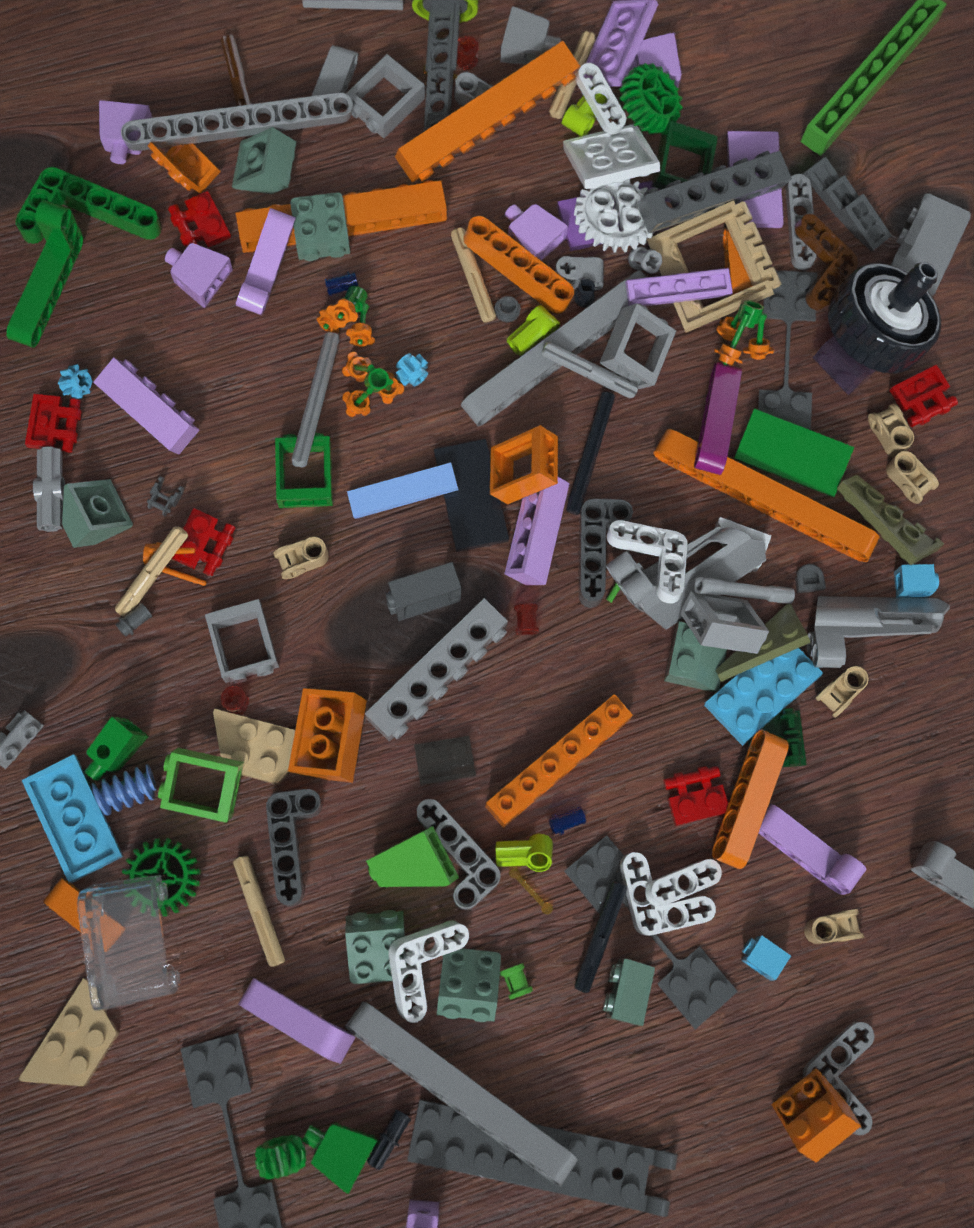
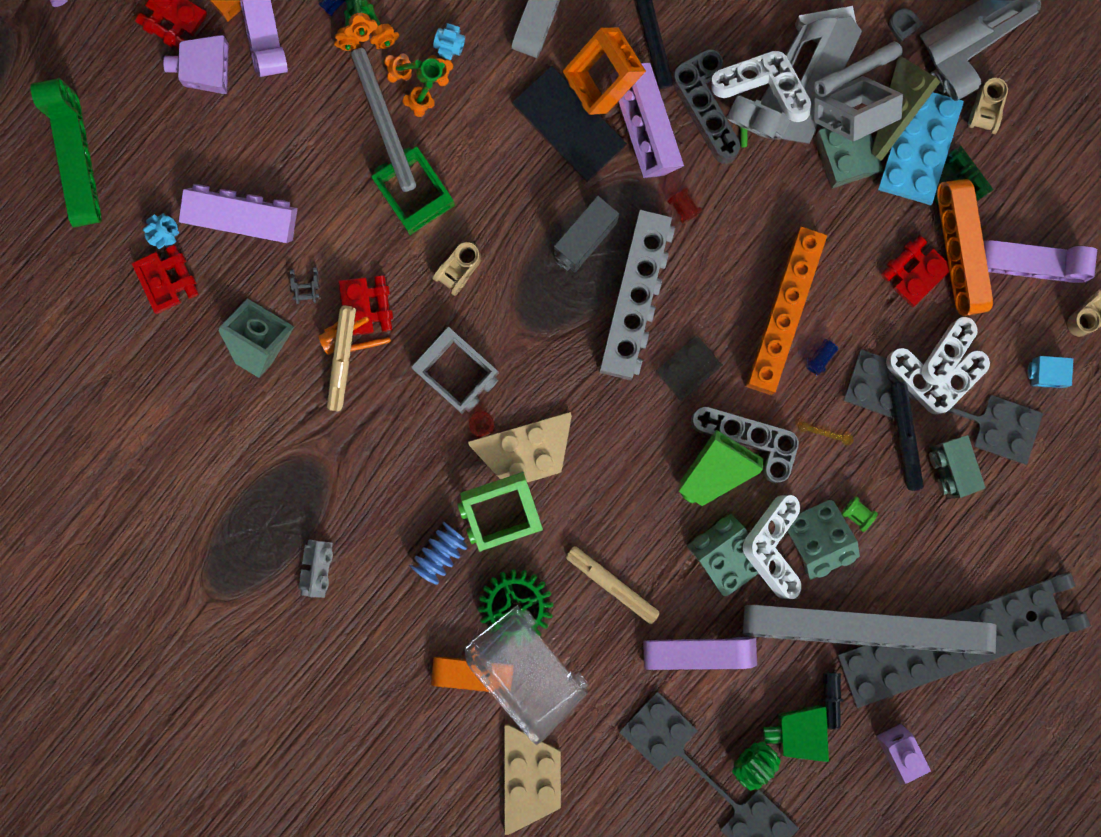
camera: 25 degrees left, 10 degrees up
(49, 489) = (202, 339): light grey piece -> none
(72, 818) = (409, 604): medium azure plate -> none
(86, 202) = (58, 61): green beam -> none
(114, 746) = (408, 514): green torso -> none
(133, 620) = (350, 408): dark grey pin -> none
(291, 847) = (607, 519): dark grey beam -> none
(327, 734) = (579, 406): orange slope -> none
(402, 490) = (509, 155): light blue tile -> none
(534, 853) = (812, 400): lime piece -> none

